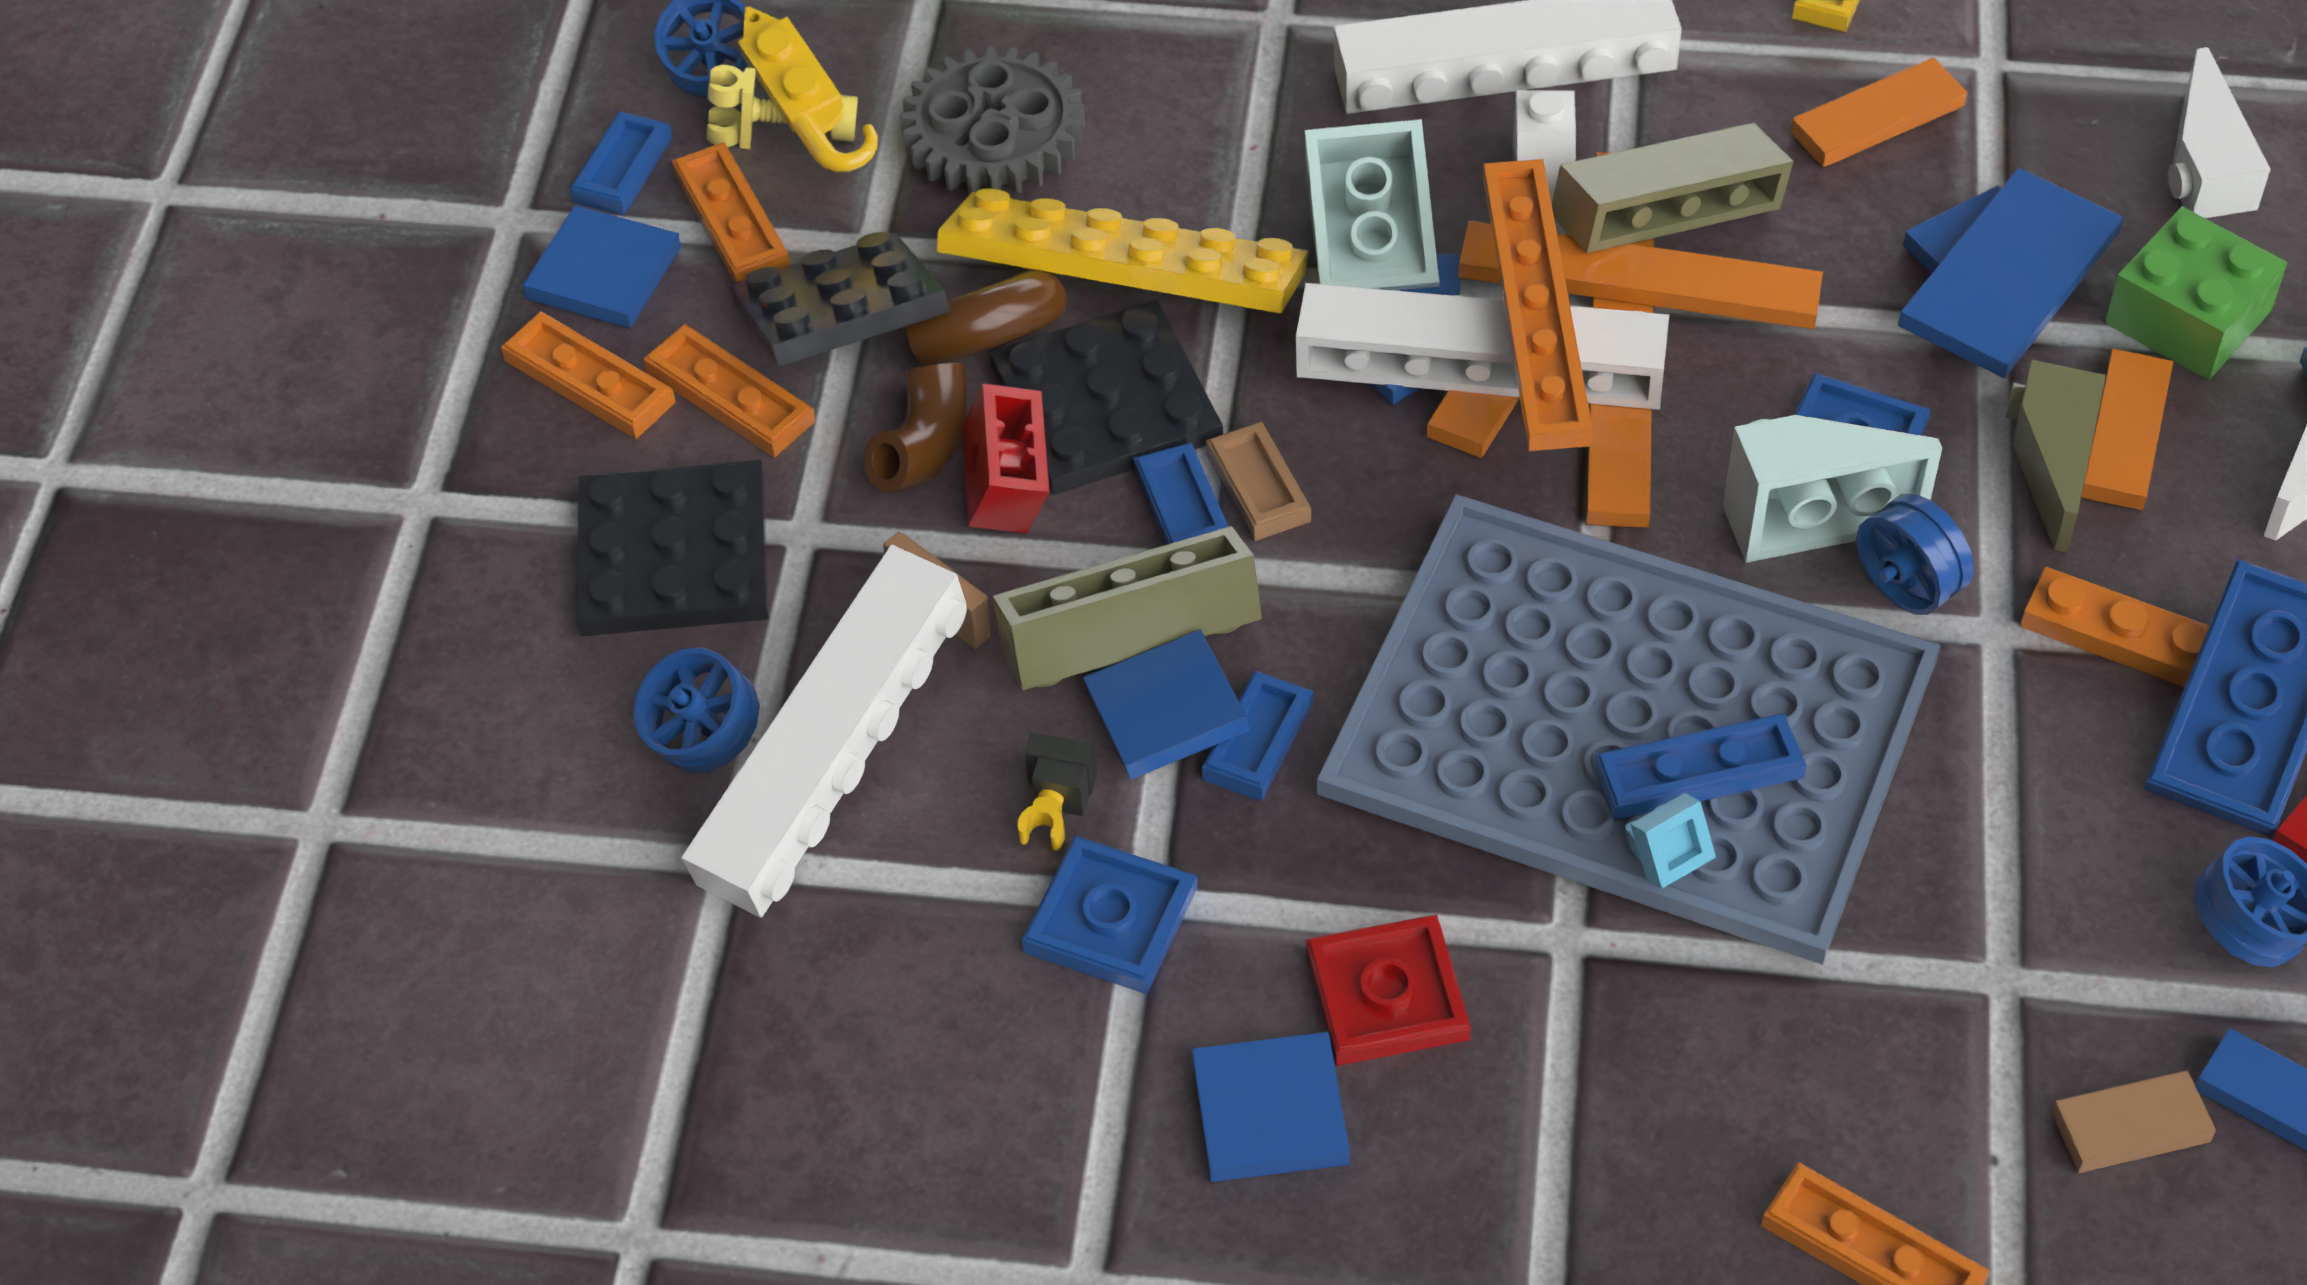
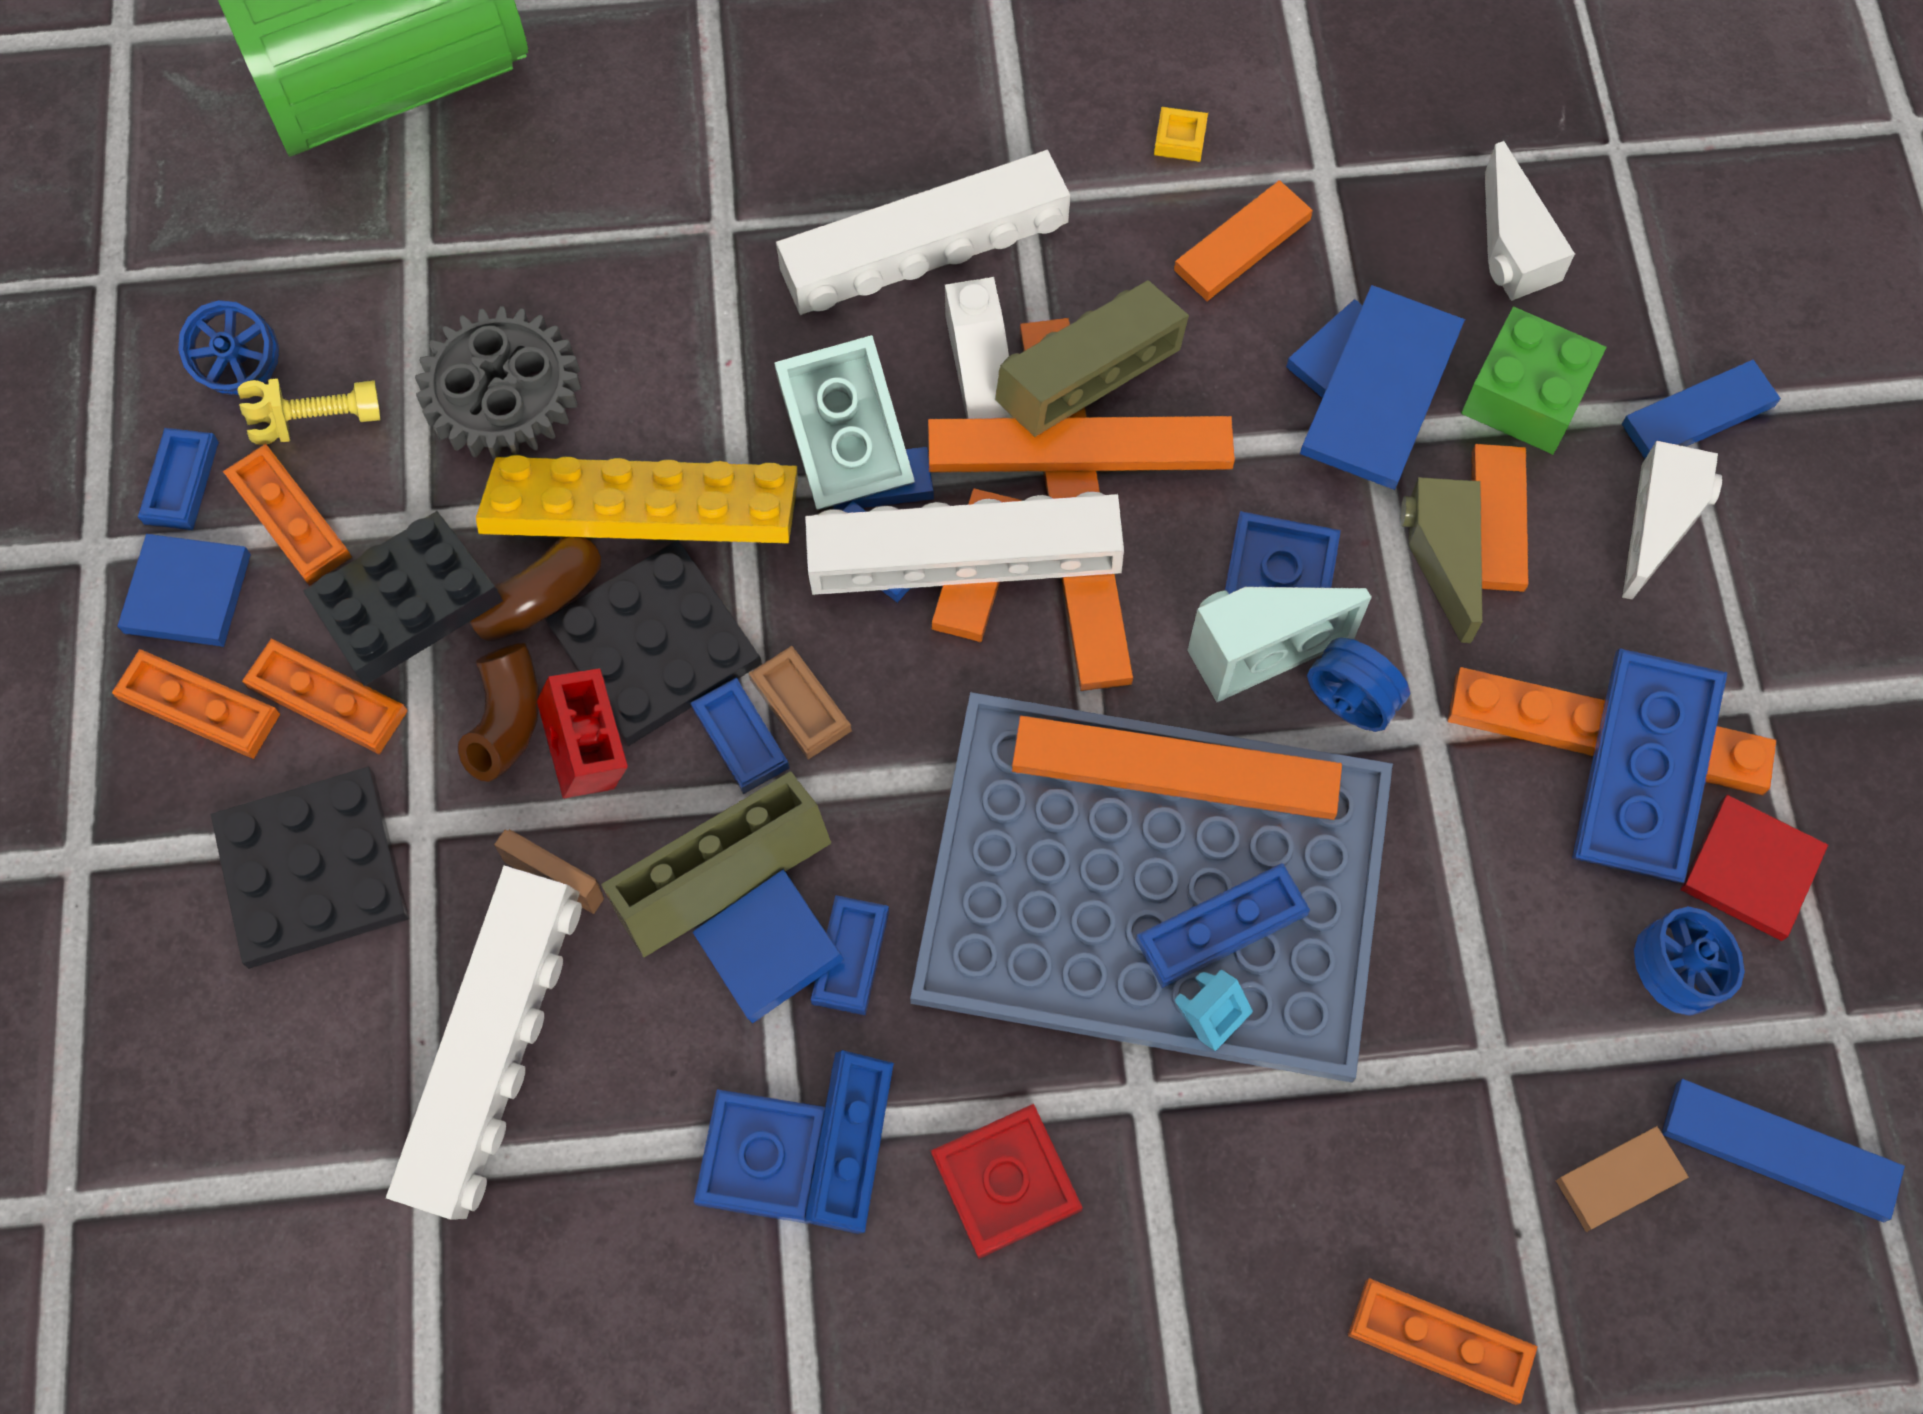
camera: 15 degrees left, 15 degrees up
(673, 688) = (366, 1038): blue wheel -> none
(800, 89) = (321, 388): yellow plate -> none
(1062, 780) = (694, 1039): pearl dark grey piece -> none
(1213, 914) = (849, 1142): none -> blue tile
(1270, 1107) = (932, 1316): blue tile -> none
(1537, 306) = (1008, 512): orange plate -> none
(1682, 602) = (1177, 767): none -> orange tile

